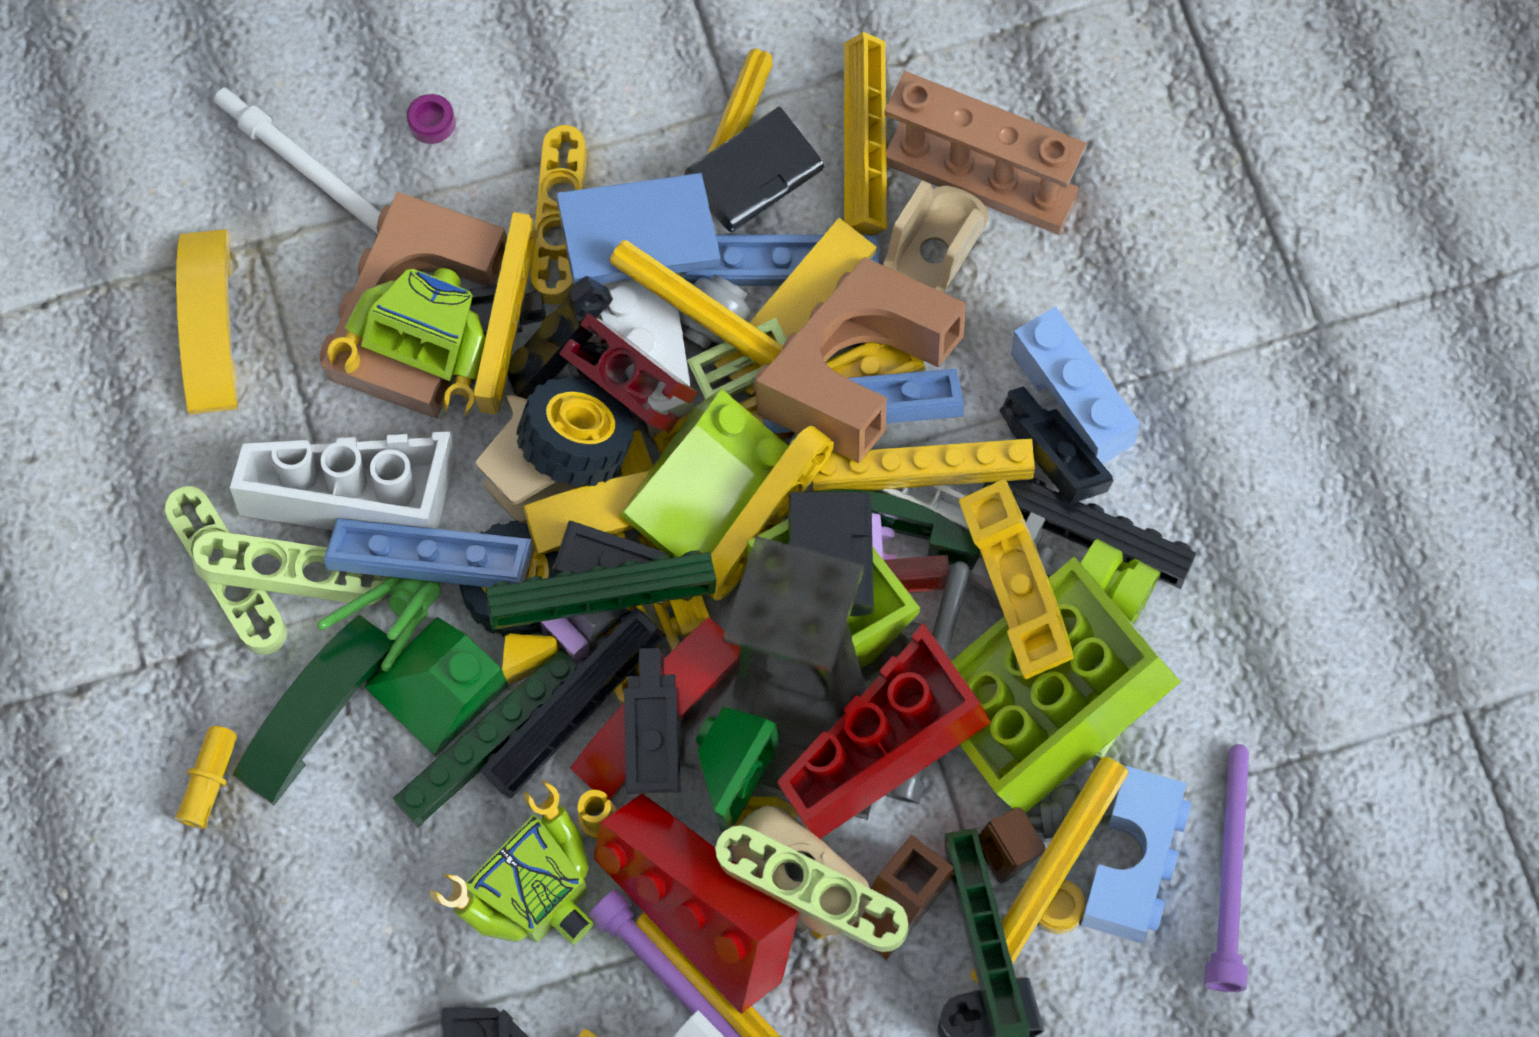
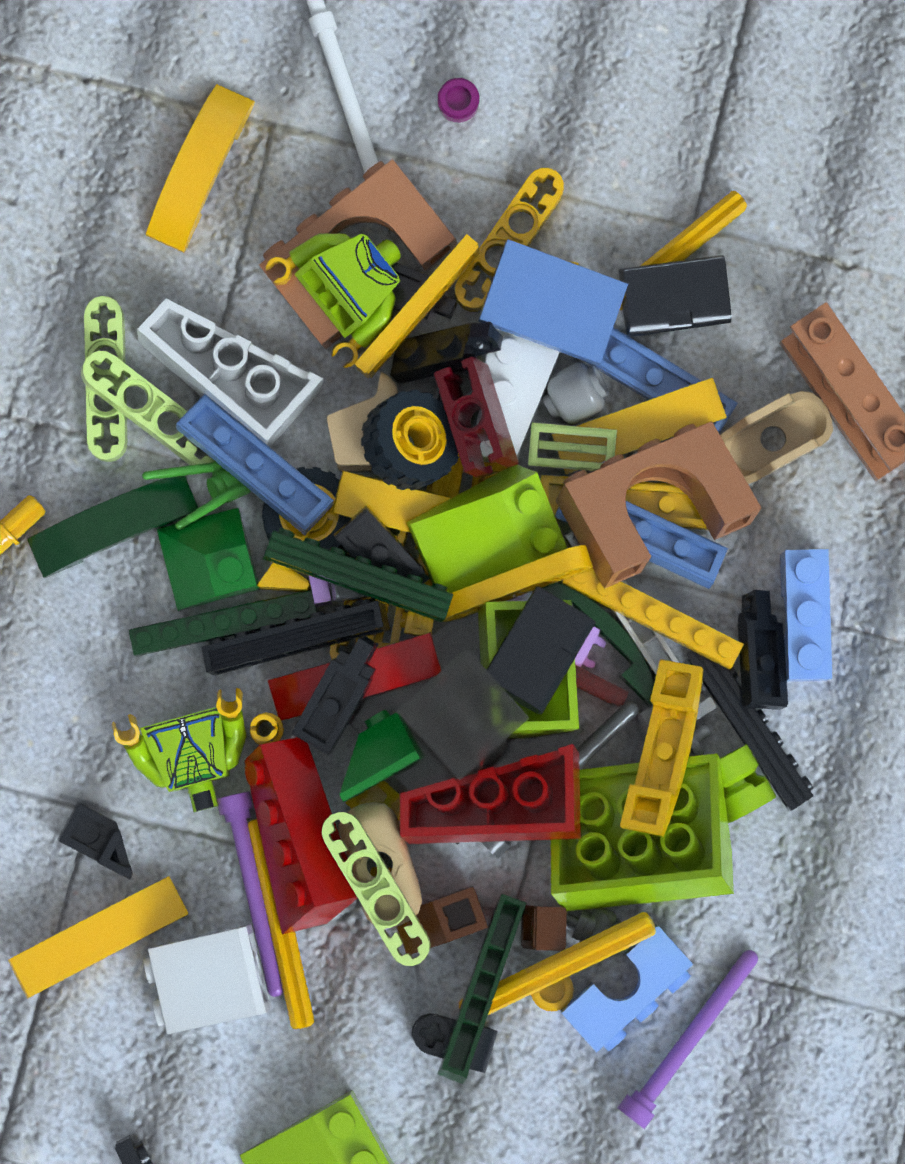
camera: 30 degrees right, 15 degrees up
(695, 303) = (559, 391): yellow axle -> none
(865, 134) = (777, 315): yellow piece -> none

